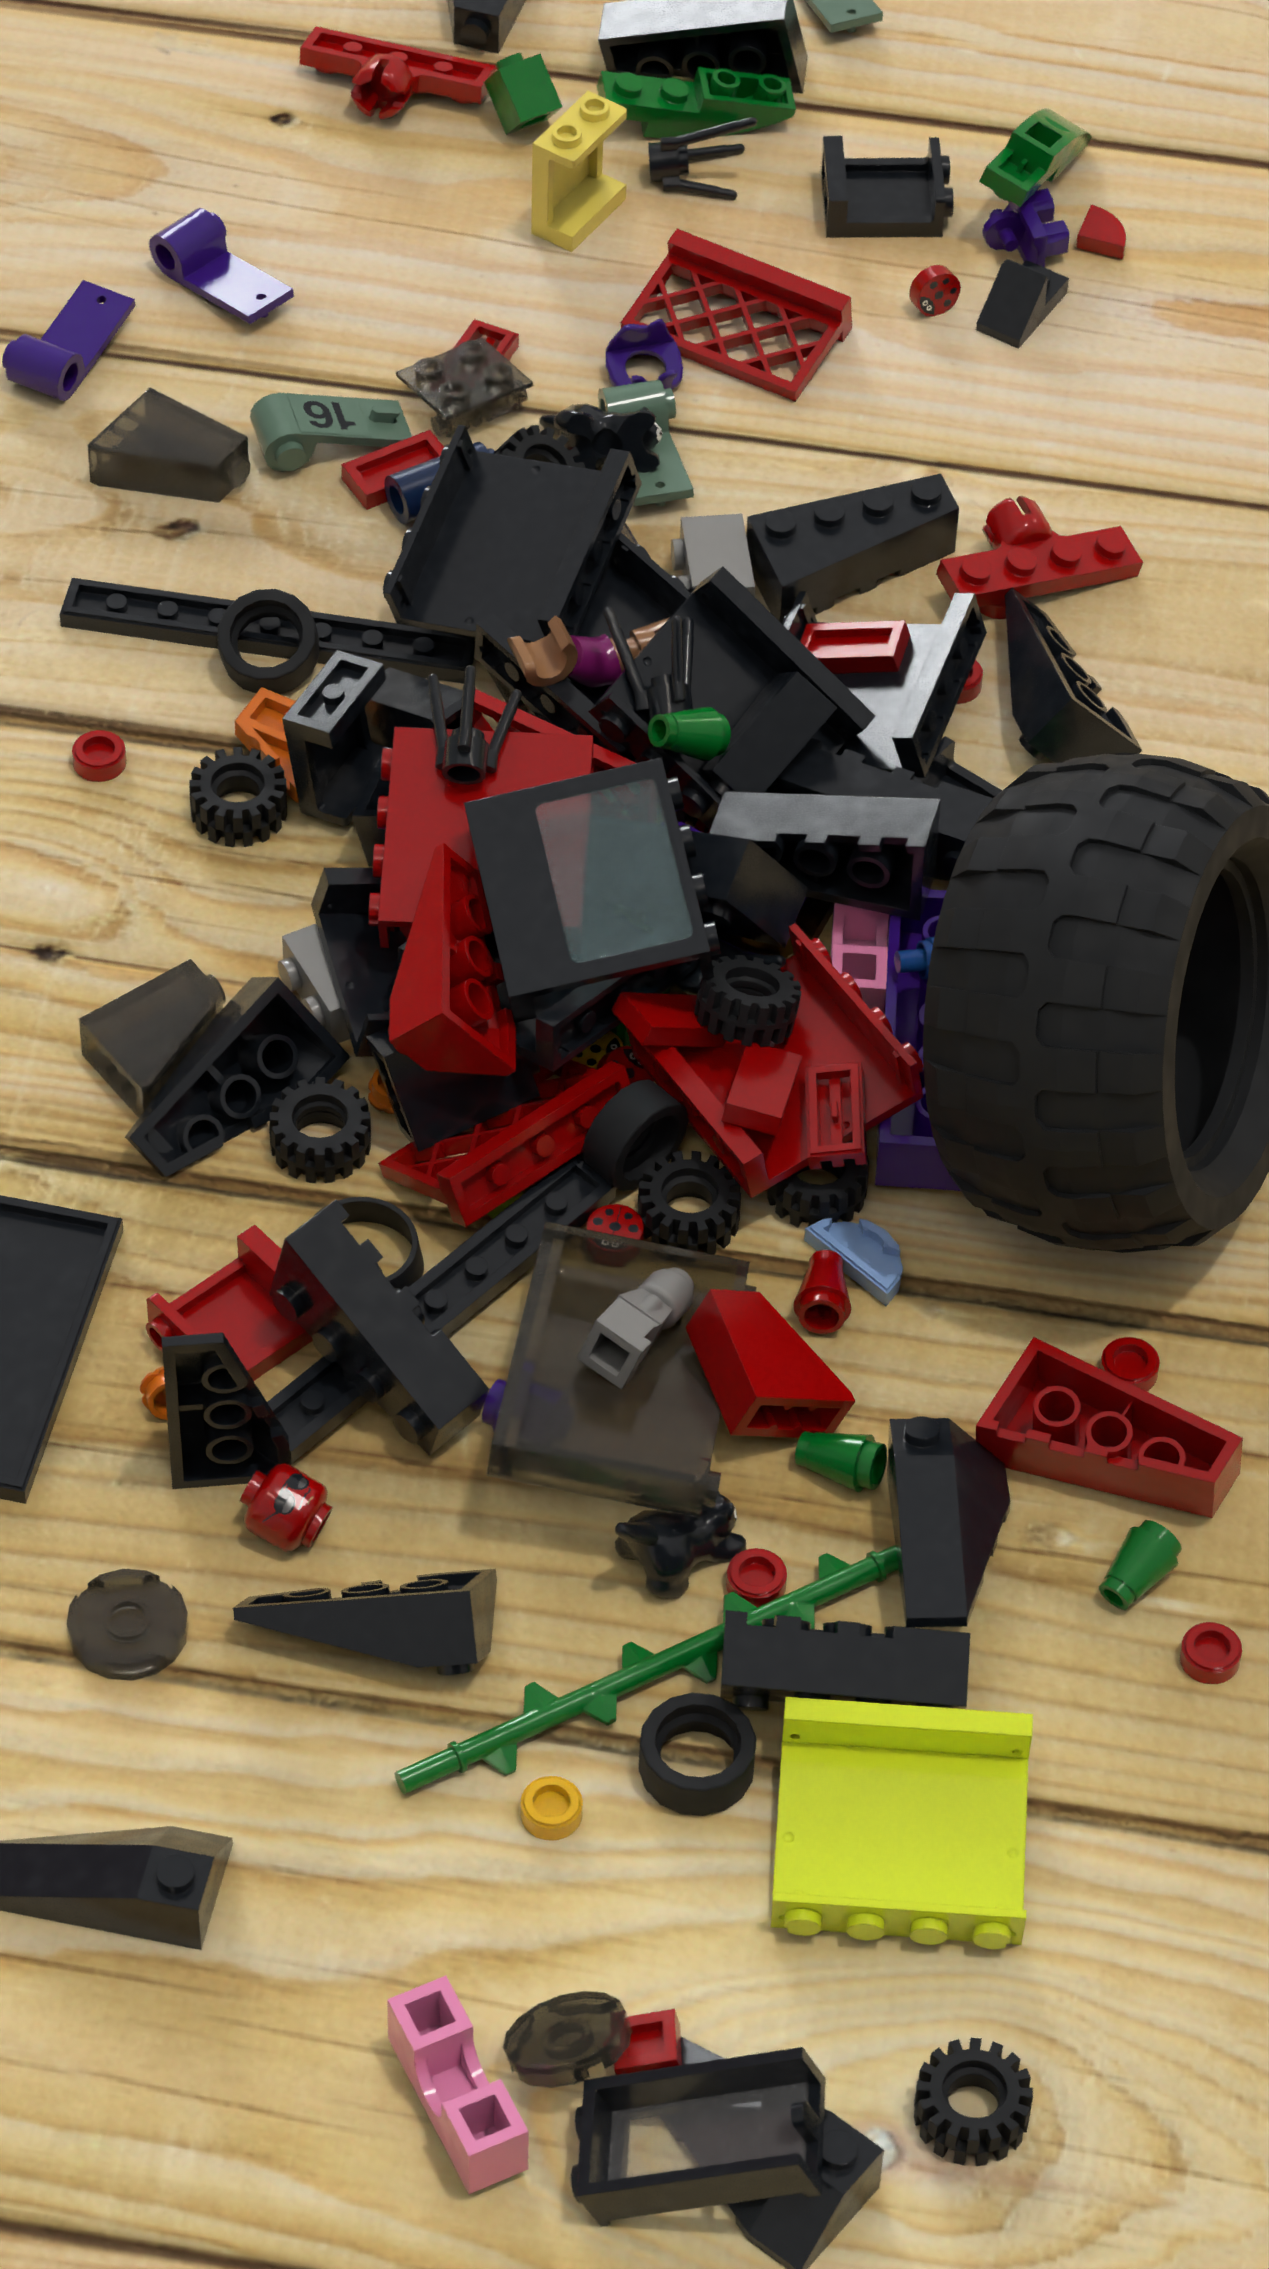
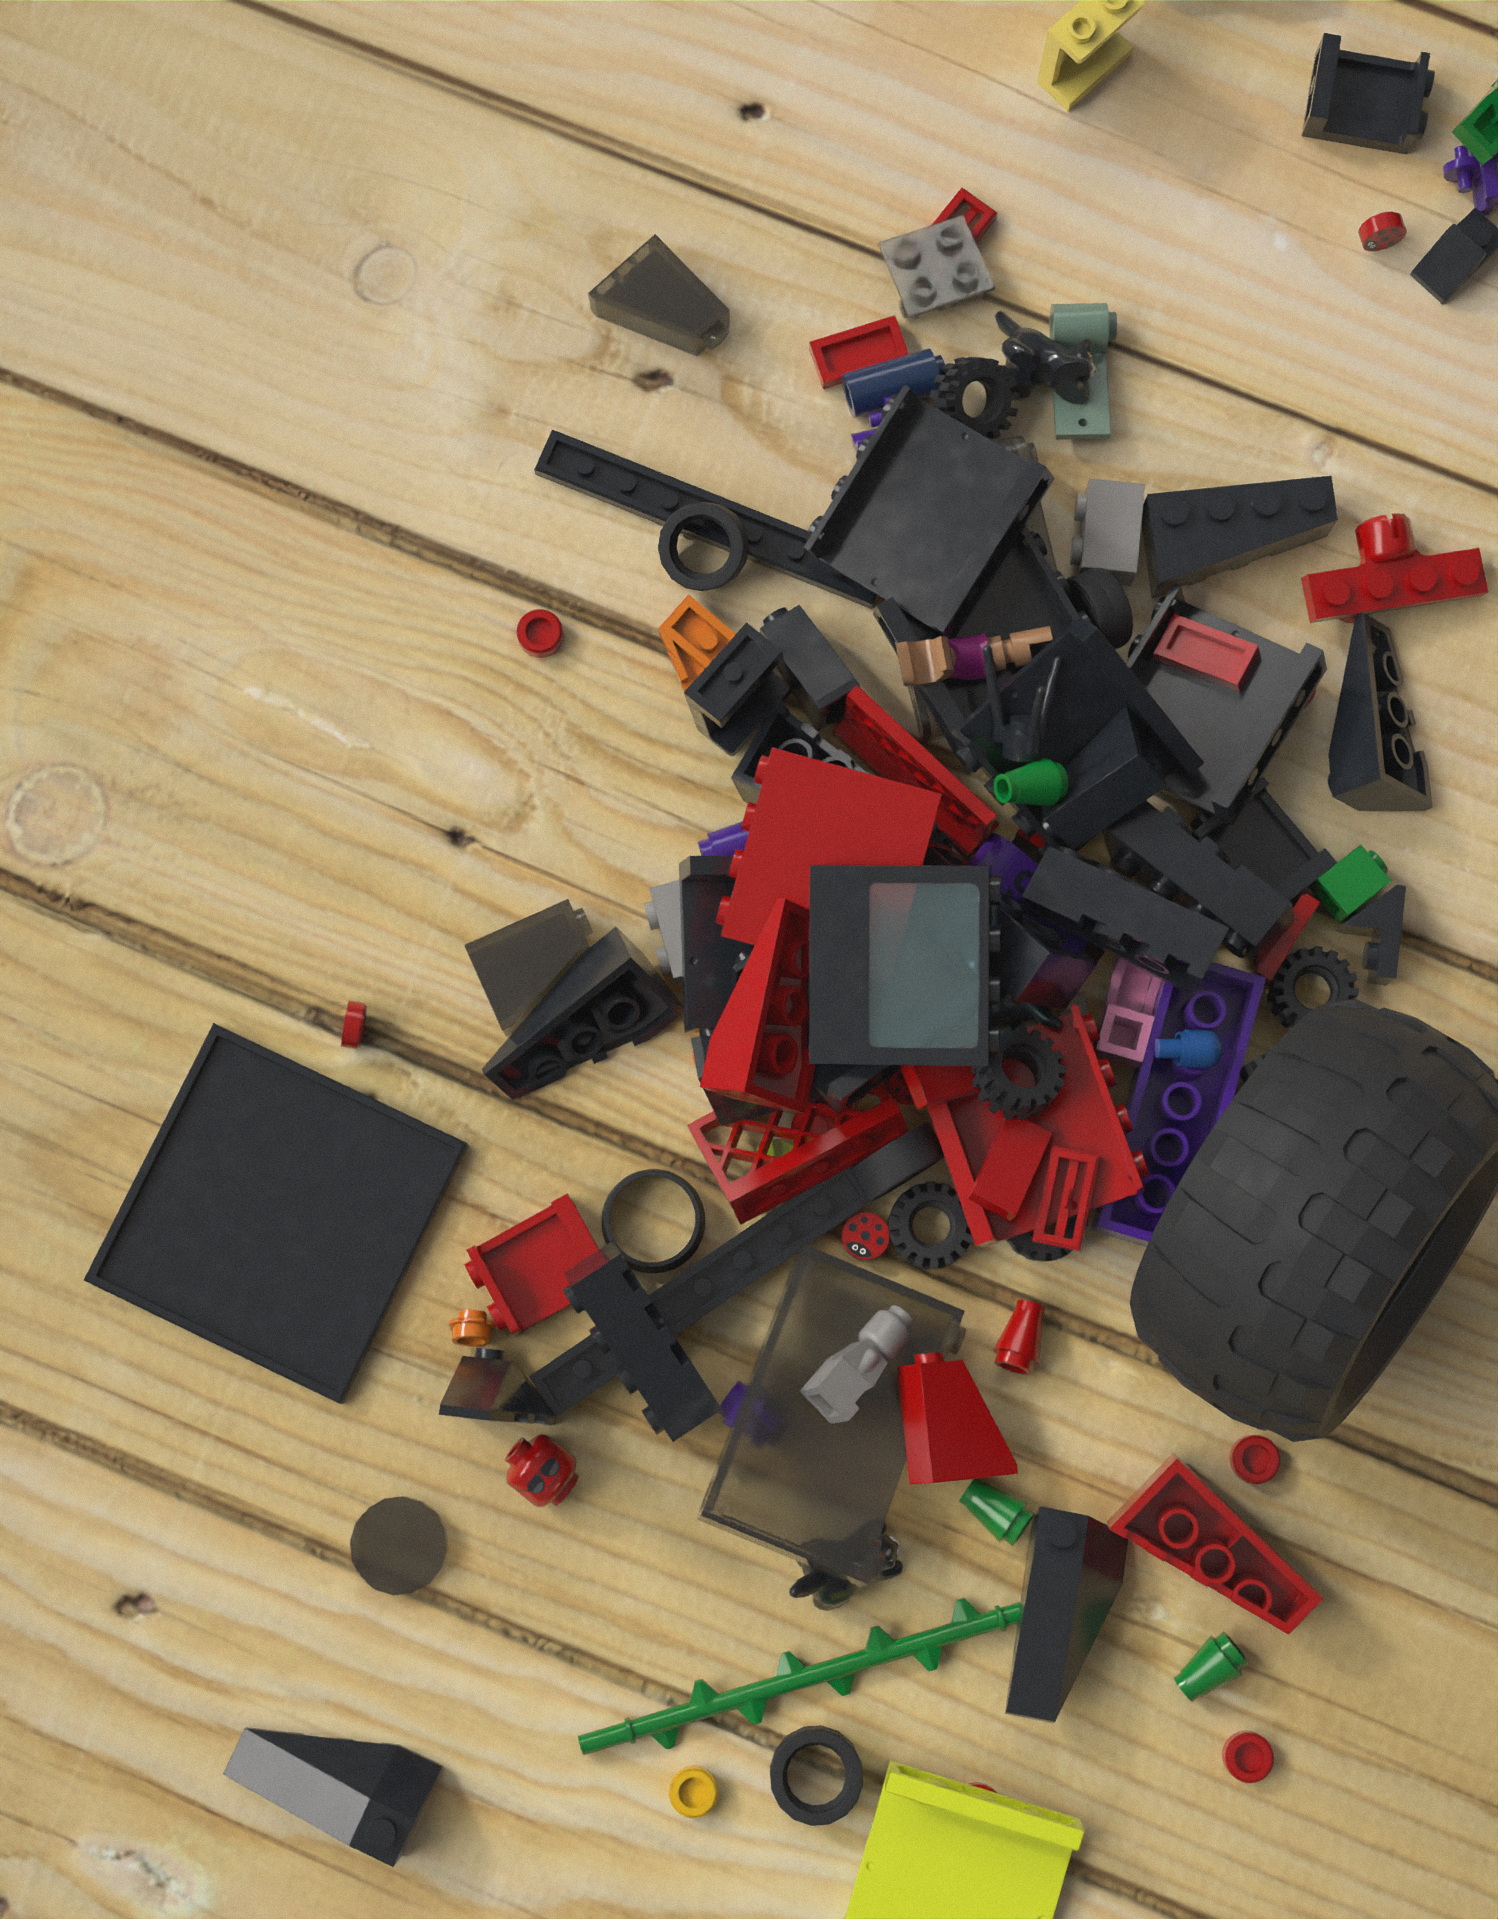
camera: 15 degrees right, 30 degrees up
(71, 343) = (600, 151): dark purple door -> none
(197, 257) = (734, 71): dark purple door -> none
(244, 818) = (637, 683): black tyre -> none
(293, 424) = (784, 291): sand green door -> none
(323, 1155) = (645, 1055): black tyre -> none
(425, 1624) = (610, 1597): black wedge -> none
(466, 754) = (826, 798): black plant -> none
(644, 340) = (1118, 251): dark purple piece -> none
(671, 157) = (1180, 23): black plant -> none
(756, 289) = (1223, 200): red fence -> none
(757, 1576) = (902, 1607): red tile -> none
(841, 1663) = (941, 1733): black wedge -> none
(867, 1254) = (1064, 1298): light blue tile -> none

